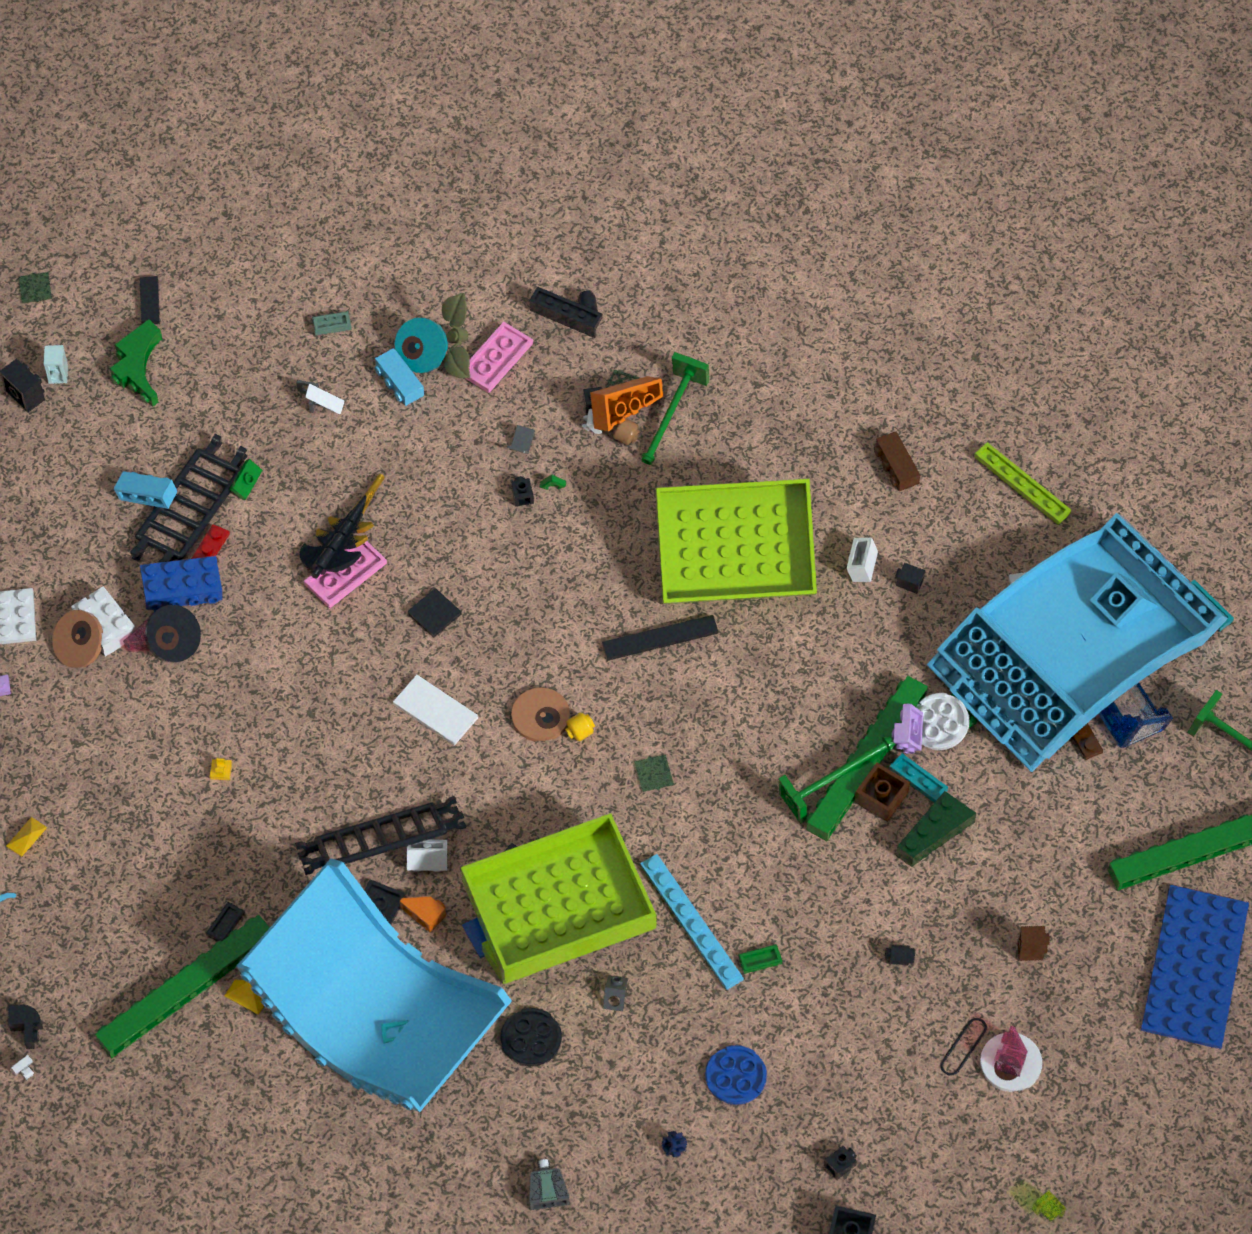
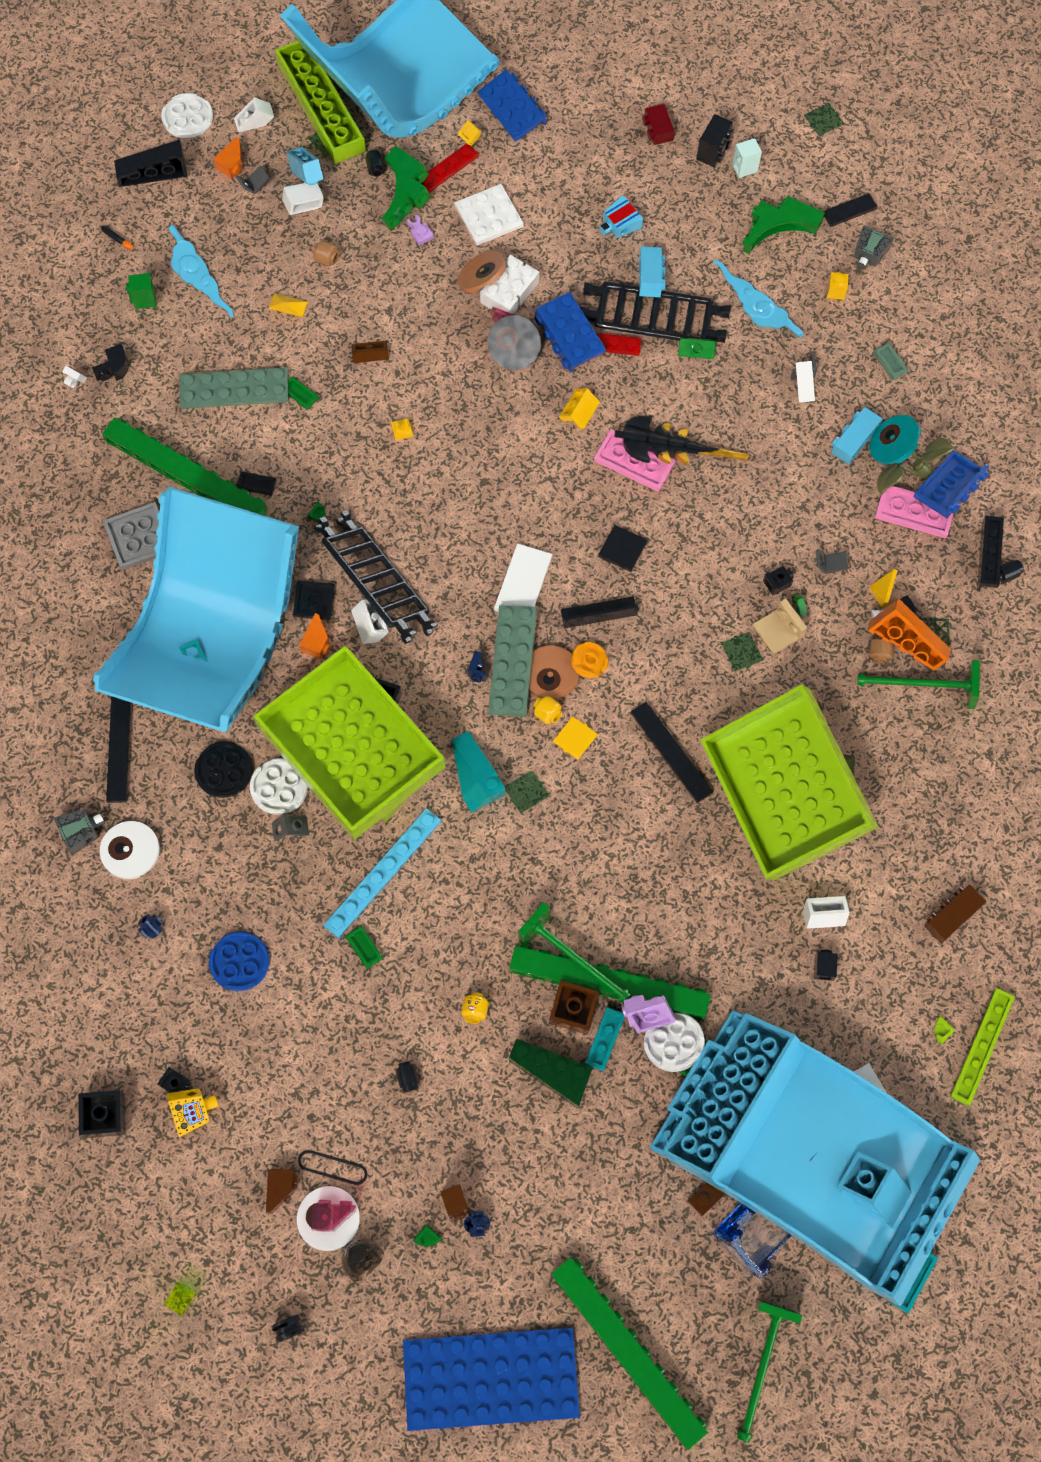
camera: 70 degrees right, 10 degrees up
(69, 498) = (621, 218): none -> medium azure torso
(104, 914) = (234, 388): none -> sand green plate
(117, 774) = (370, 352): none -> reddish brown slope
(137, 853) = (301, 393): none -> green tile
(201, 296) = (871, 247): none -> dark grey torso
(219, 413) = (758, 305): none -> medium azure piece
(232, 337) = (837, 285): none -> yellow brick
(240, 1050) = (134, 535): none -> light grey plate
(265, 602) = (580, 407): none -> yellow panel
(284, 874) = (316, 513): none -> green tile
(471, 1130) = (118, 751): none -> black tile
(487, 318) = (951, 484): none -> blue bracket
(493, 653) = (599, 612): none -> black panel
(510, 777) = (475, 668): none -> dark blue bracket
(517, 741) = (512, 661): none -> sand green plate
(541, 676) = (589, 660): none -> light orange tile
(565, 408) = (883, 587): none -> yellow slope
(568, 990) = (277, 787): none -> white tile
(571, 504) = (780, 627): none -> tan bracket
(581, 547) = (742, 651): none -> clear green piece
(585, 1146) = (129, 850): none -> white tile
(615, 714) = (575, 738): none -> yellow piece
(630, 808) = (476, 775): none -> teal wedge
(854, 877) = (474, 1008): none -> yellow head
(872, 1152) = (190, 1109): none -> yellow torso
(971, 1094) = (279, 1187): none -> reddish brown slope
(997, 509) = (942, 1030): none -> lime tile
(1053, 982) = (427, 1237): none -> green tile
(1054, 929) = (476, 1223): none -> dark blue gear
(1056, 1040) = (360, 1256): none -> clear smoke cylinder
(1103, 1120) = (286, 1332): none -> black wheel

